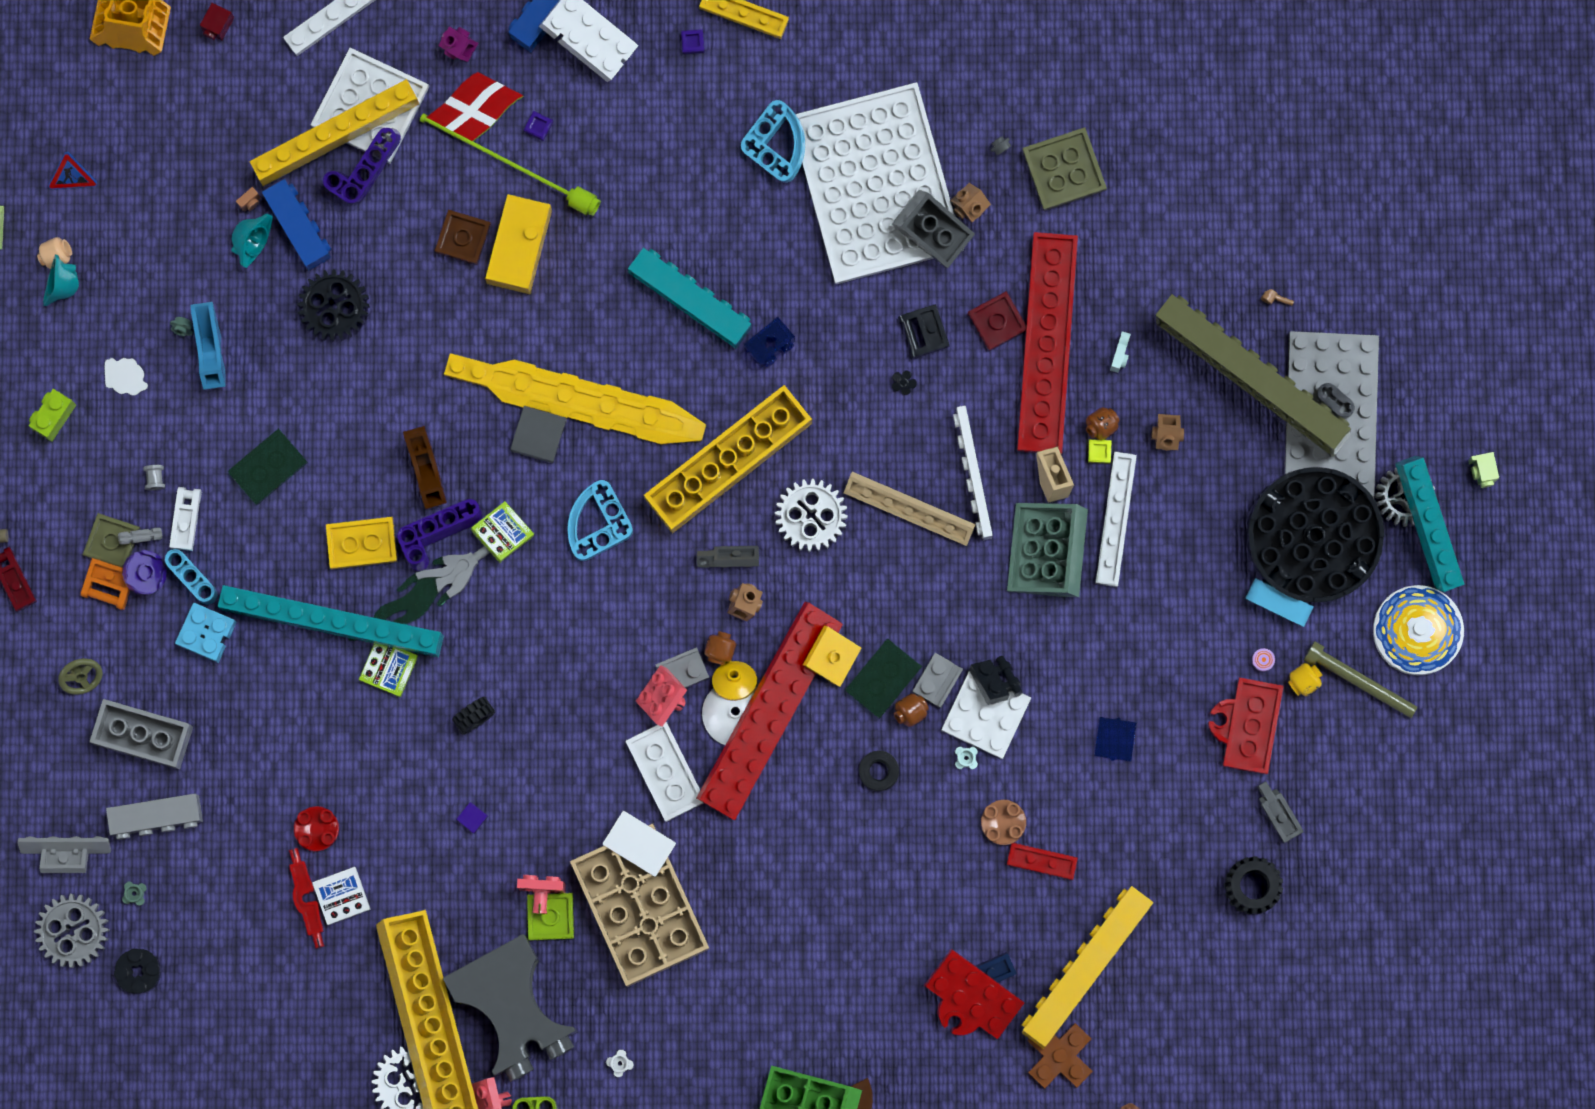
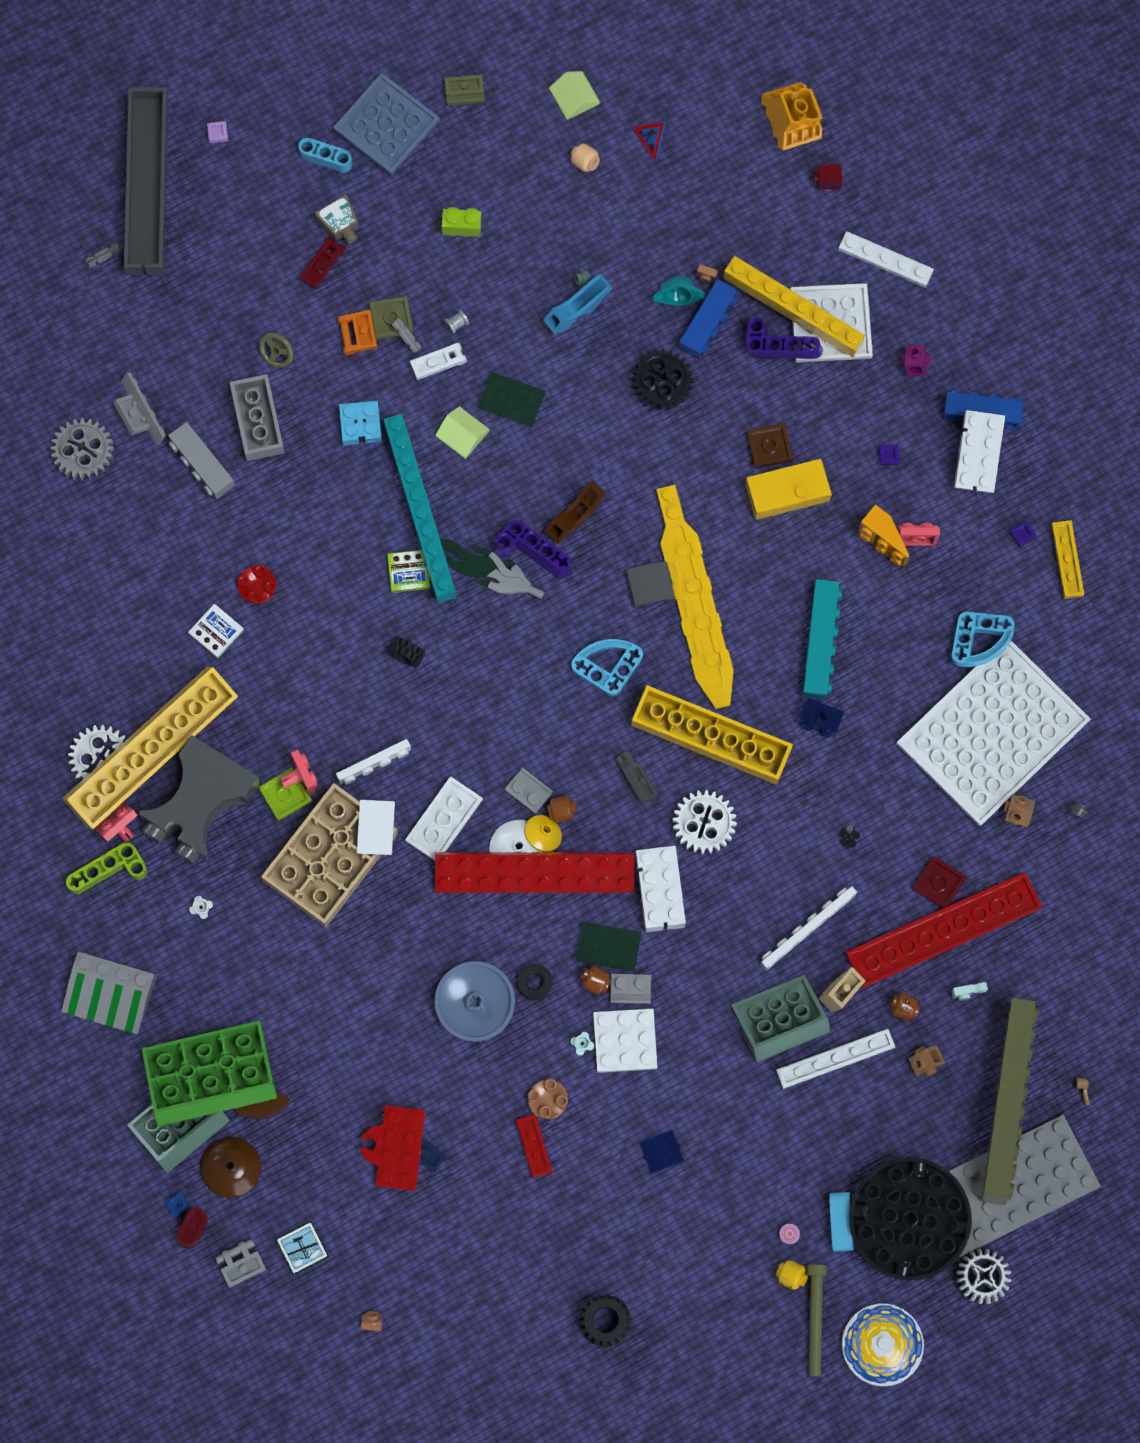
camera: 55 degrees right, 5 degrees down
(61, 281) = (567, 174): teal hat -> none
(124, 376) = (521, 259): white sticker -> none
(138, 898) = (129, 476): sand green plate -> none
(138, 984) = (71, 505): black plate -> none
(144, 572) = (380, 353): dark purple tile -> none
(186, 567) = (401, 381): medium azure beam -> none
(273, 535) = (461, 432): none -> yellowish green slope
(309, 910) = (208, 599): red piece -> none
(361, 543) = (492, 499): yellow plate -> none
(472, 817) = (328, 695): dark purple tile -> none
(475, 110) = (875, 402): flag -> none
(502, 532) = (559, 597): tile -> none
(568, 819) = (380, 759): none -> white plate
(621, 176) = (882, 533): none -> light orange slope
(639, 142) = (919, 535): none -> coral plate
(662, 696) = (499, 784): coral plate -> none
(745, 601) = (608, 807): medium nougat brick -> none
(832, 656) = (603, 896): yellow plate -> none
(855, 595) = (660, 888): none -> white piece
(868, 840) = (475, 1001): none -> sand blue dish
(909, 508) = (752, 894): tan plate -> none
(930, 327) = (904, 833): black plate -> none
(933, 228) = (981, 792): dark grey slope -> none
(989, 681) = (650, 1028): black plate -> none
(1061, 1057) = (389, 1241): dark orange plate -> none
(1064, 169) = (1089, 869): olive plate -> none
(1087, 967) = (469, 1224): yellow brick -> none
(1099, 451) = (882, 1017): neon yellow tile -> none
(1249, 725) = (731, 1250): red plate -> none
(1279, 813) = (674, 1311): dark grey hinge -> none
(1339, 397) = (1032, 1180): black beam -> none
(1429, 523) = (970, 1304): teal brick -> none
(1484, 469) = (1041, 1328): yellowish green brick -> none

